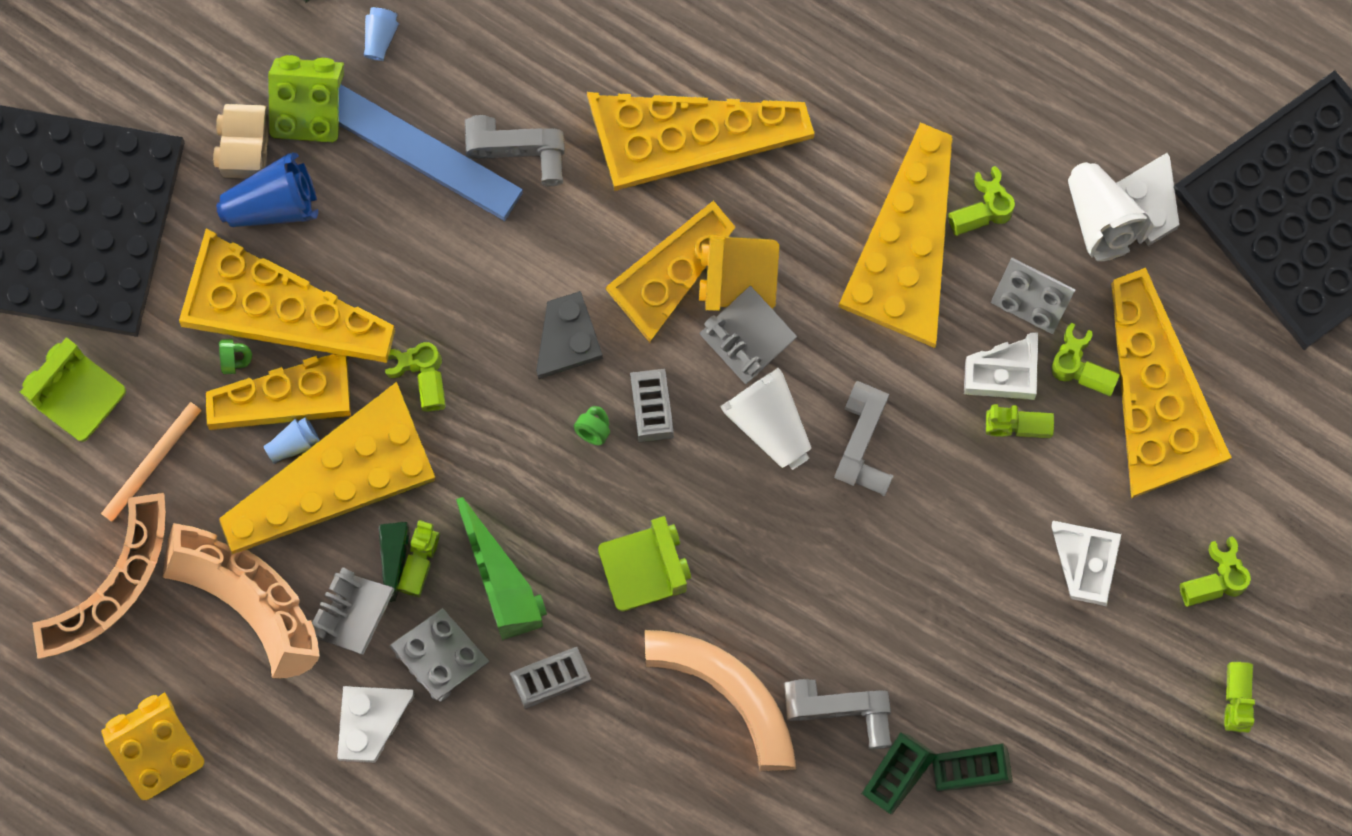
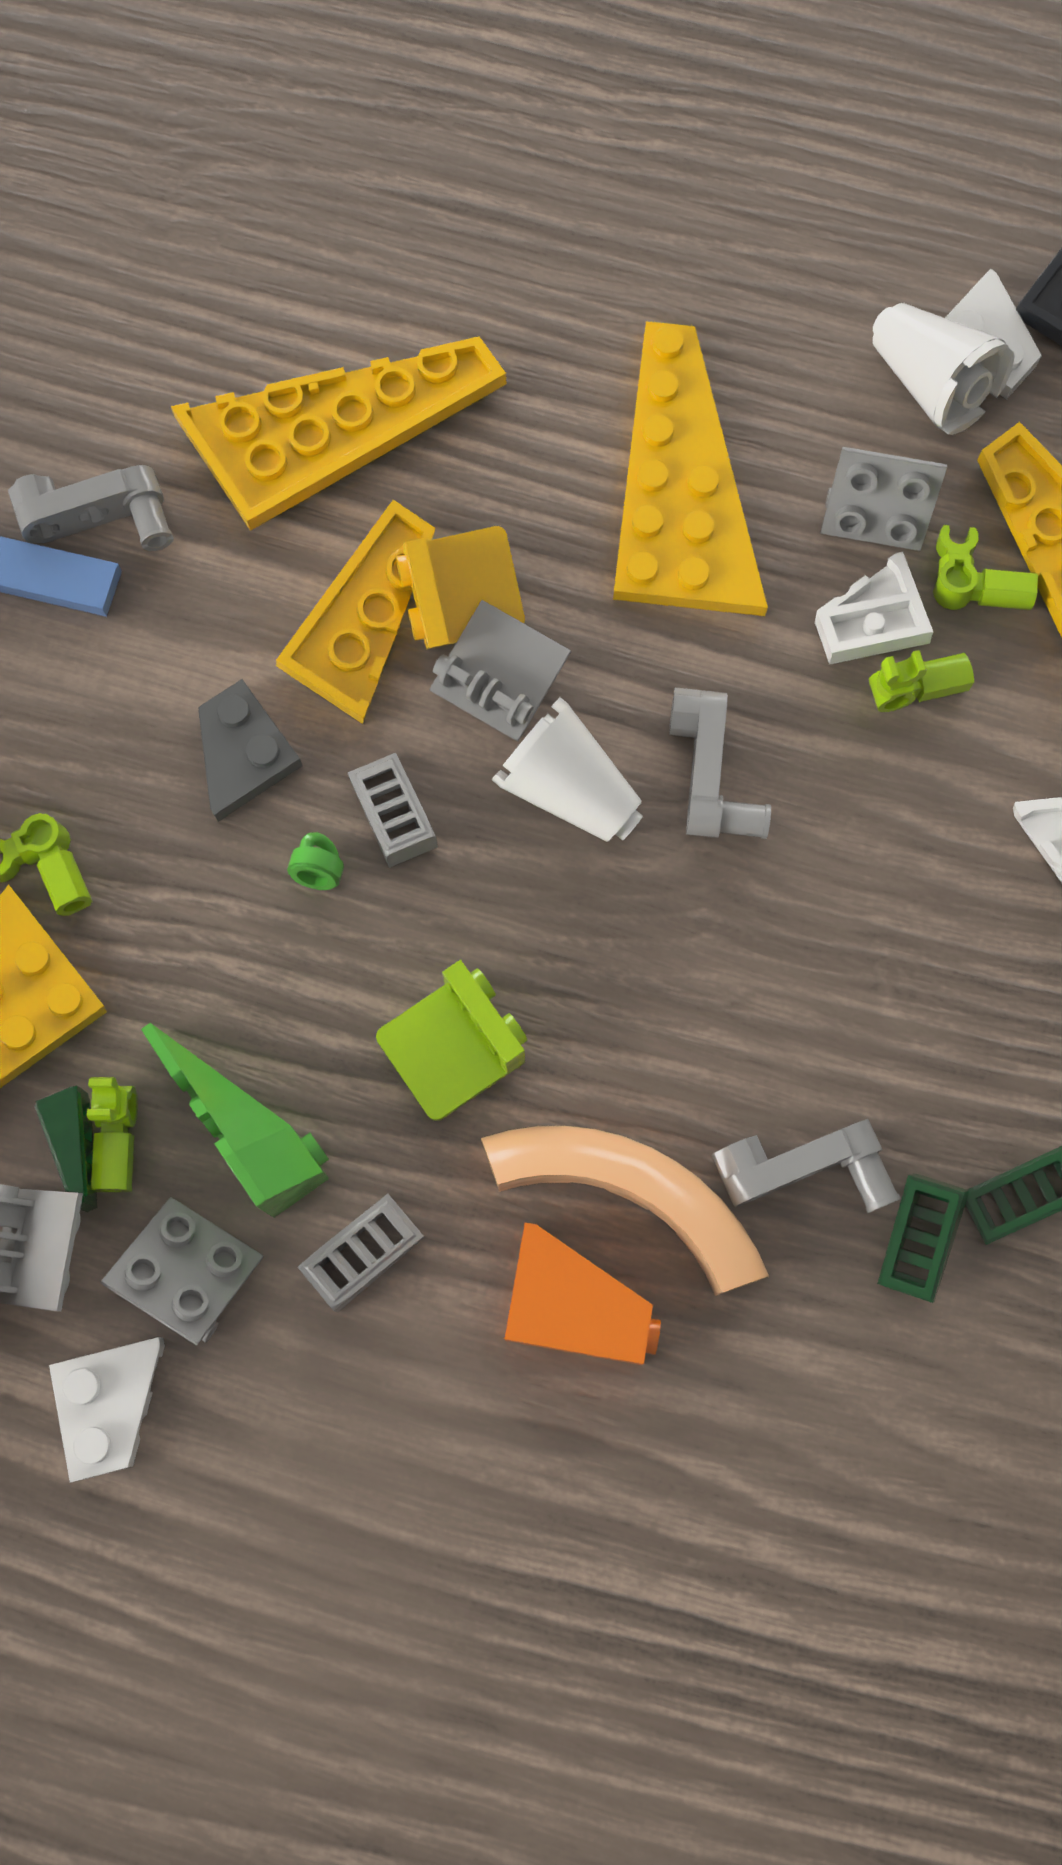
camera: 15 degrees left, 0 degrees up
(670, 748) = (575, 1305): none -> orange slope
(997, 209) = (785, 404): lime bar -> none

